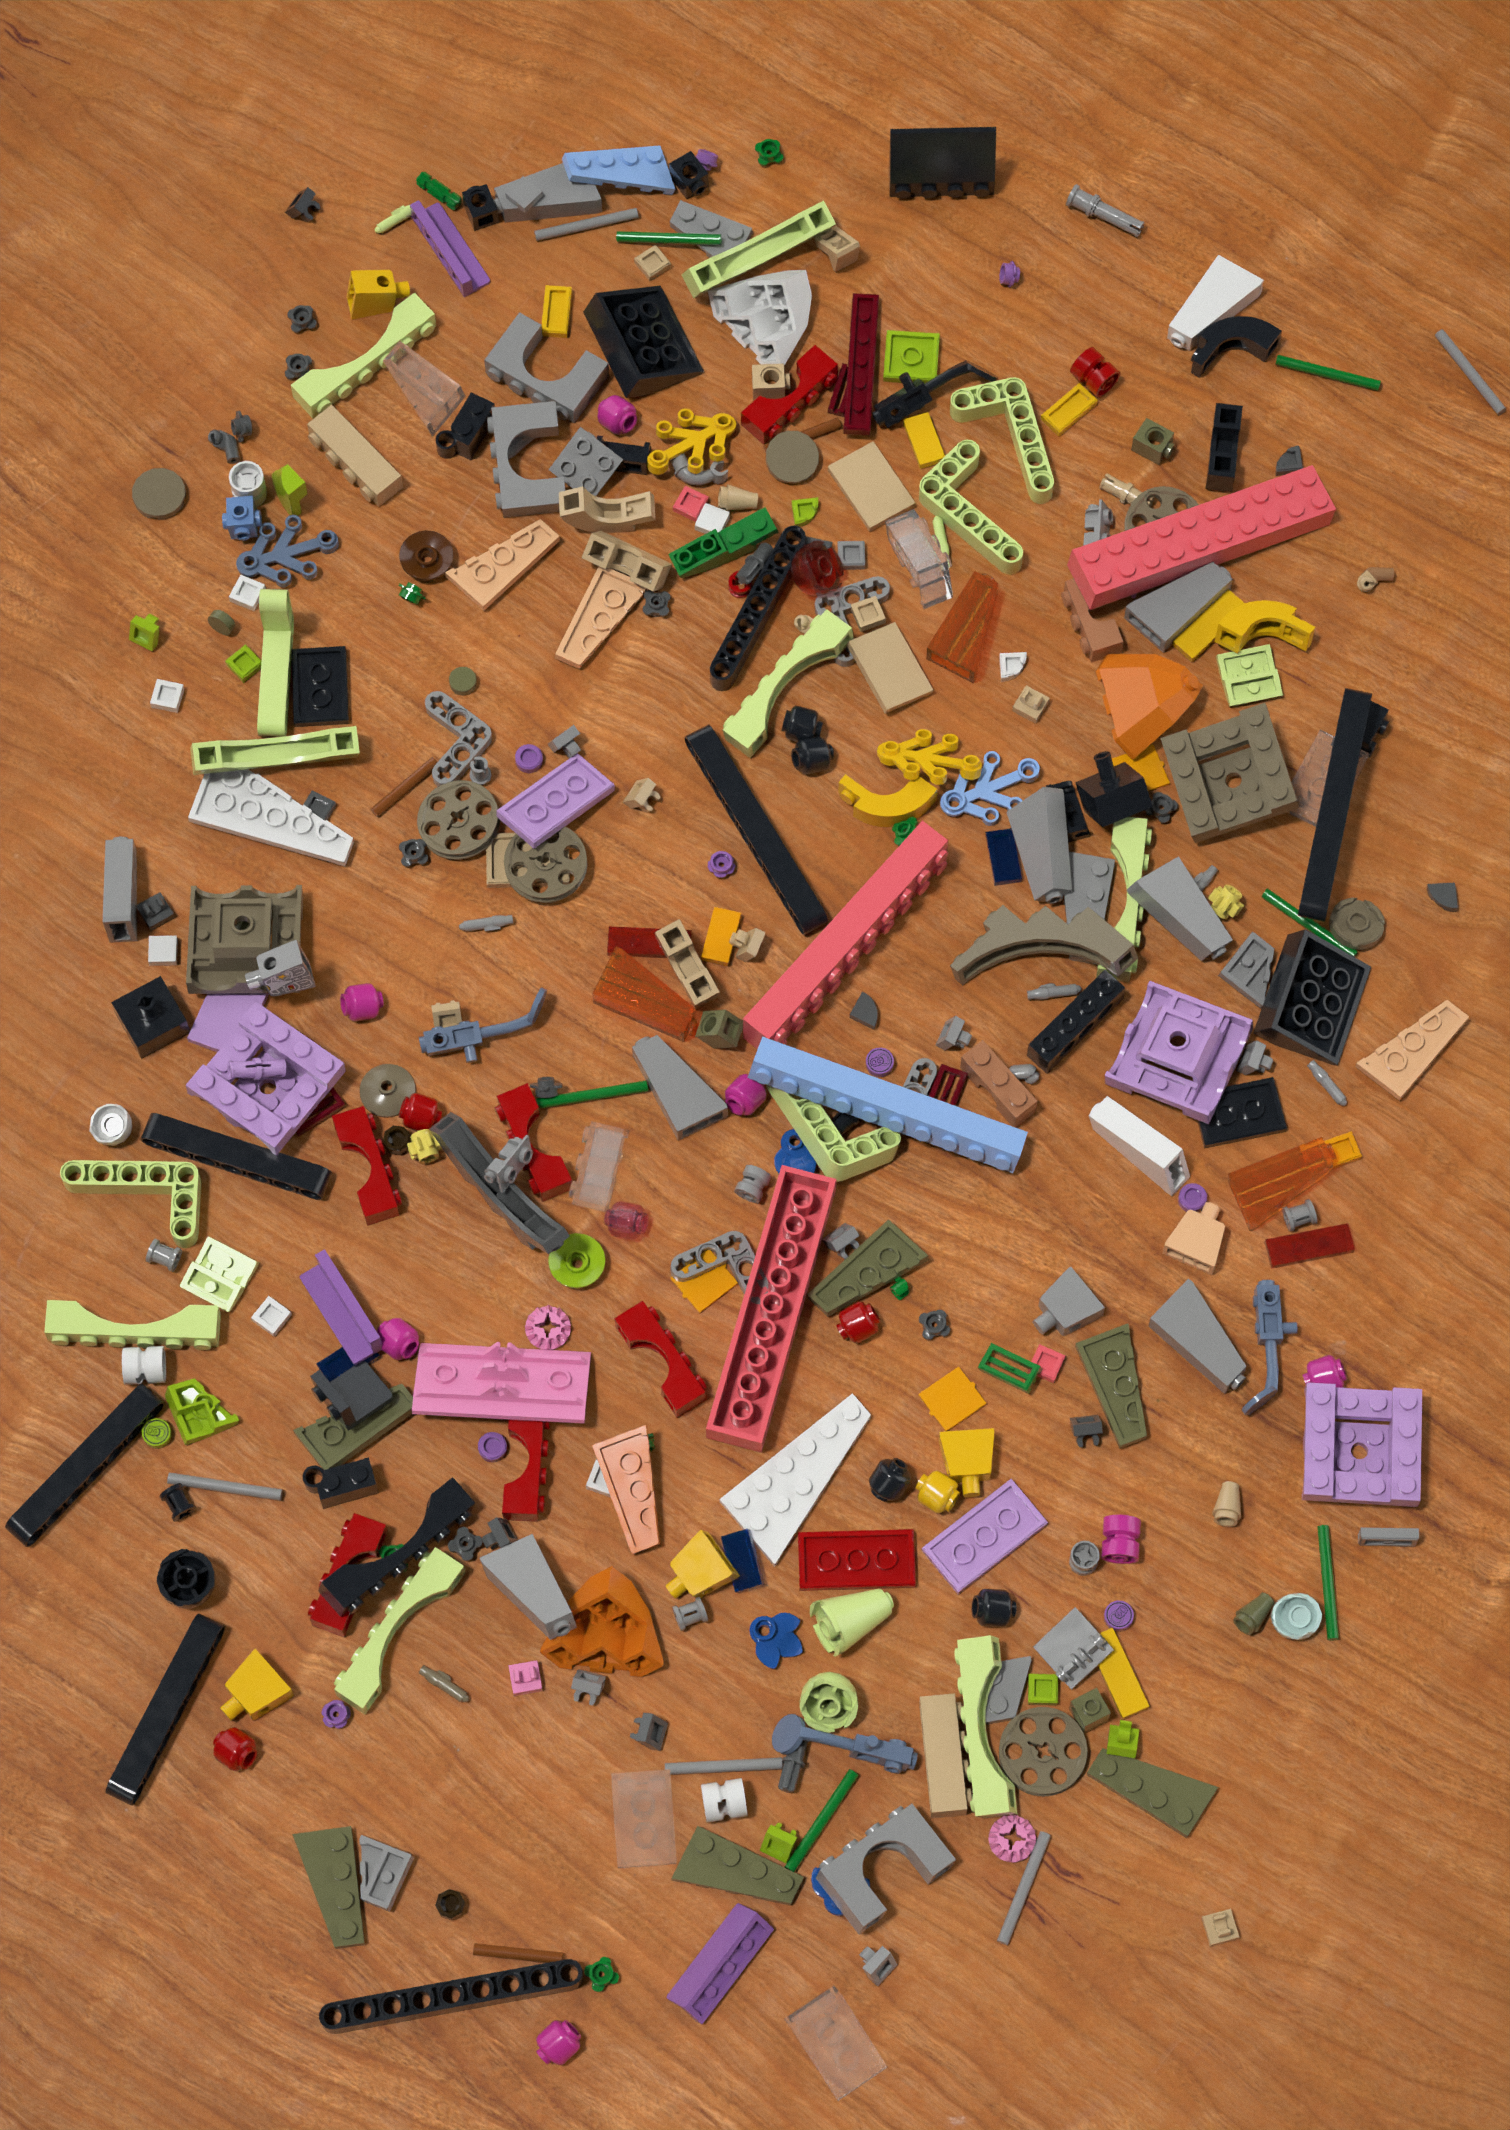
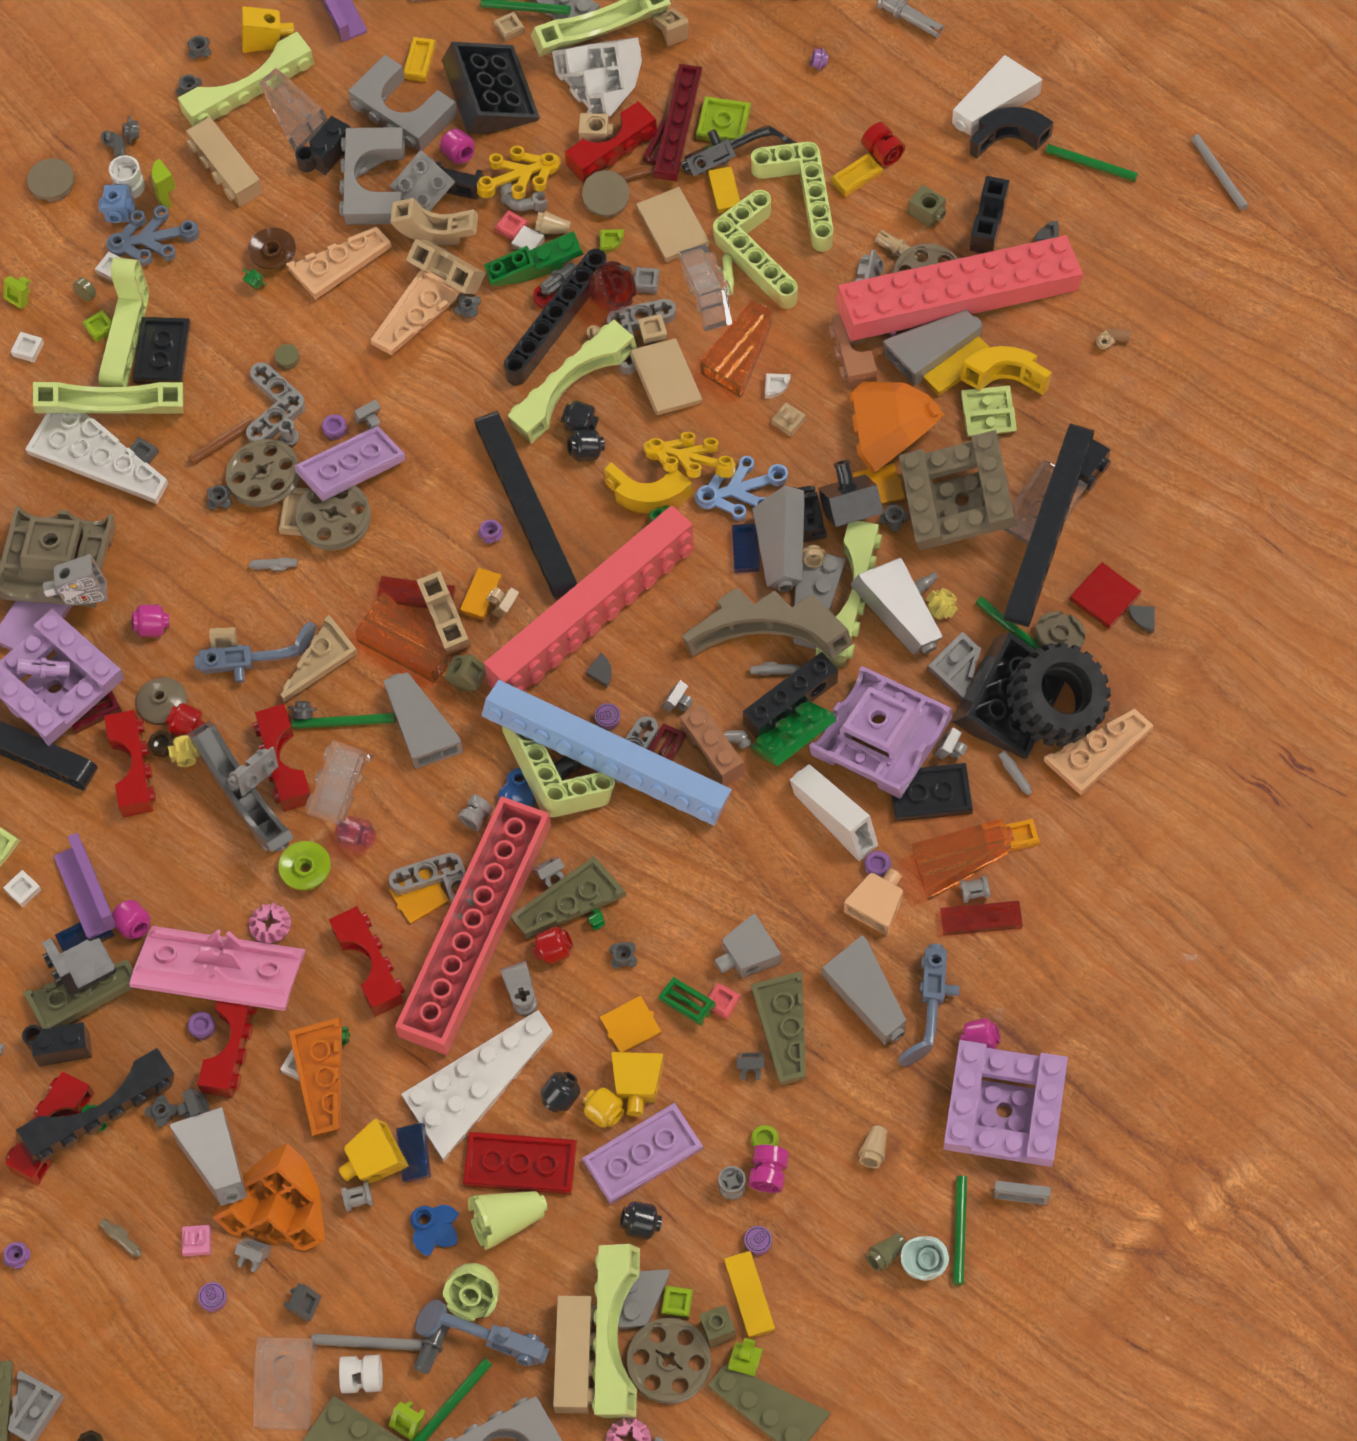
camera: 10 degrees right, 5 degrees down
(433, 1581) = (125, 1142): yellowish green arch -> none
(552, 1736) = (212, 1297): none -> medium lavender tile
(562, 1019) = (325, 654): none -> tan wing
(639, 794) = (427, 464): tan tile -> none
(744, 1095) = (480, 734): dark pink head -> none
(827, 1368) = (519, 986): none -> light grey piece
(1073, 1648) = (710, 1266): light grey hinge -> none
(1081, 861) = (813, 556): none -> tan plate
(1085, 1063) = (793, 733): none -> green plate
(1111, 1505) = (765, 1135): none -> lime tile
(1392, 976) = (1083, 678): none -> black tyre
(1400, 874) = (1105, 595): none -> red tile

